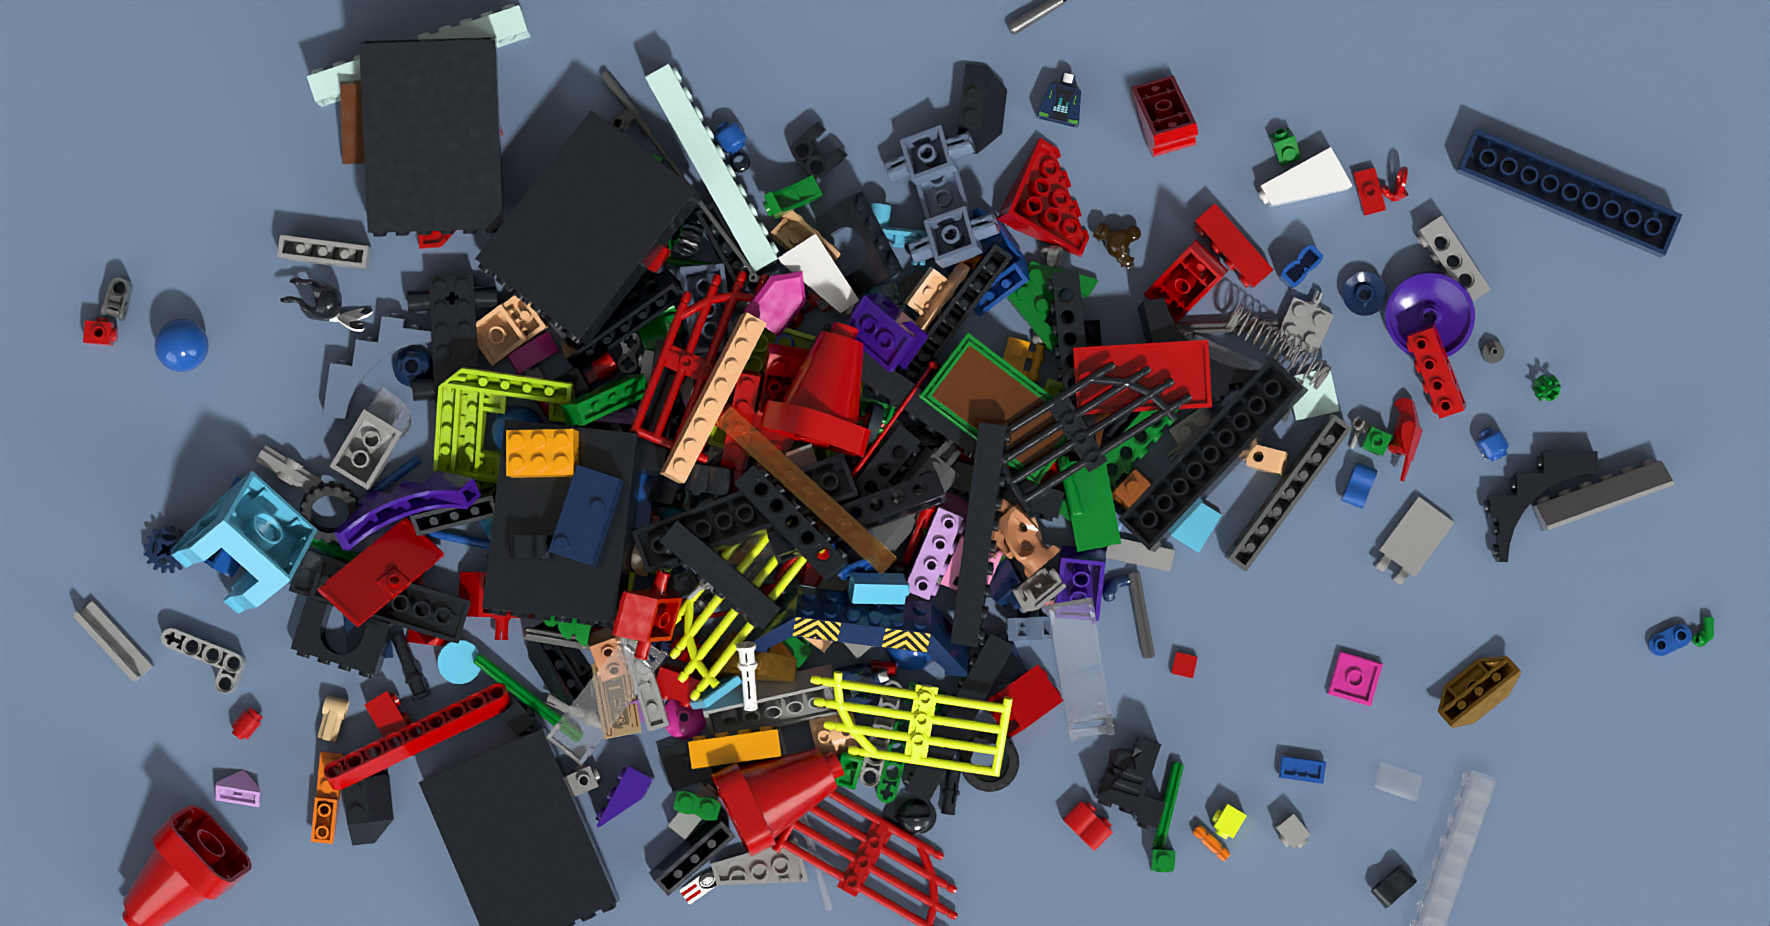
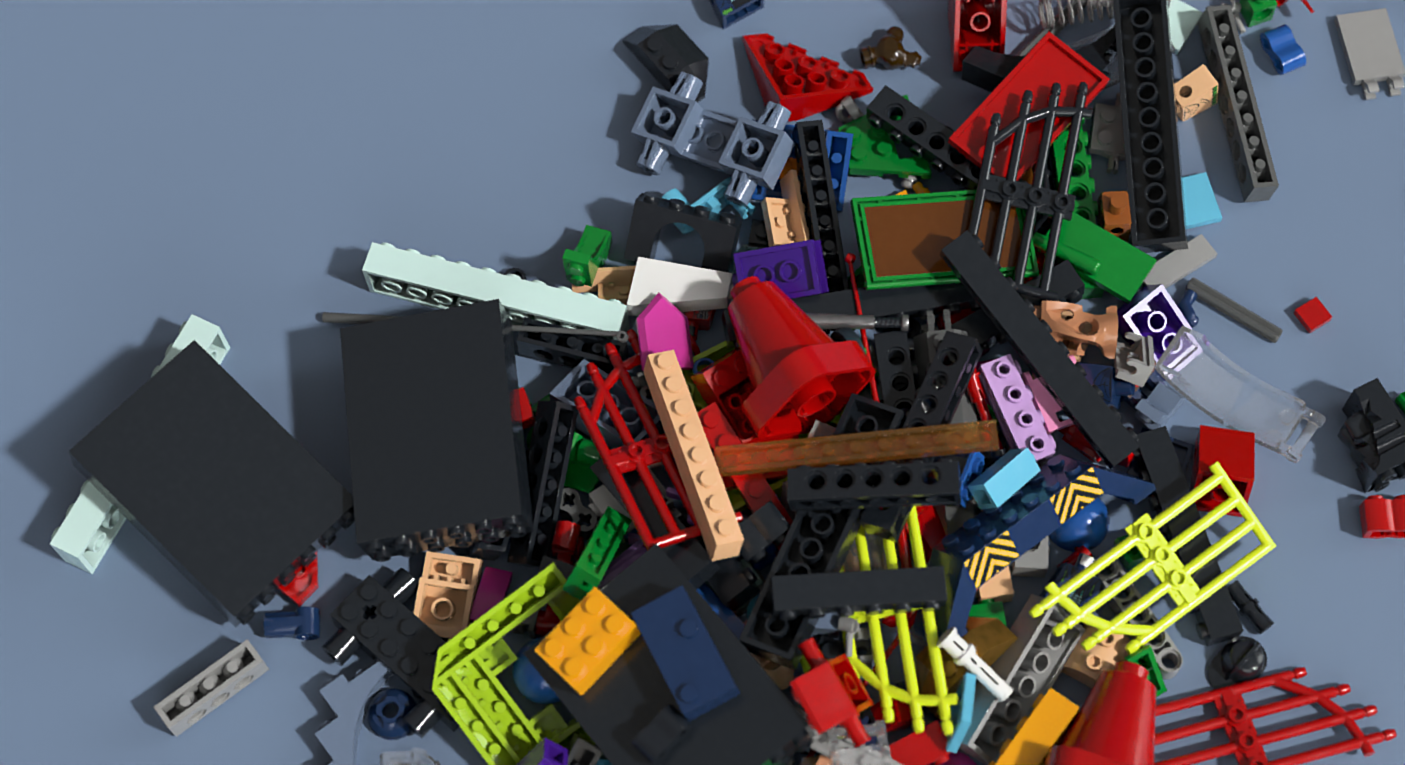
camera: 45 degrees left, 20 degrees down
(328, 305) = (257, 732): black hair -> none
(351, 122) = (131, 549): reddish brown tile -> none
(408, 259) = (301, 624): none -> dark blue piece
(687, 238) = (532, 371): black gear -> none
(730, 137) = (486, 258): blue head -> none
(813, 155) = (554, 208): black piece -> none
(891, 405) = (838, 321): none -> flat silver piece
(900, 765) = (1180, 628): green beam -> none
(1000, 783) = (1281, 552): black tyre -> none

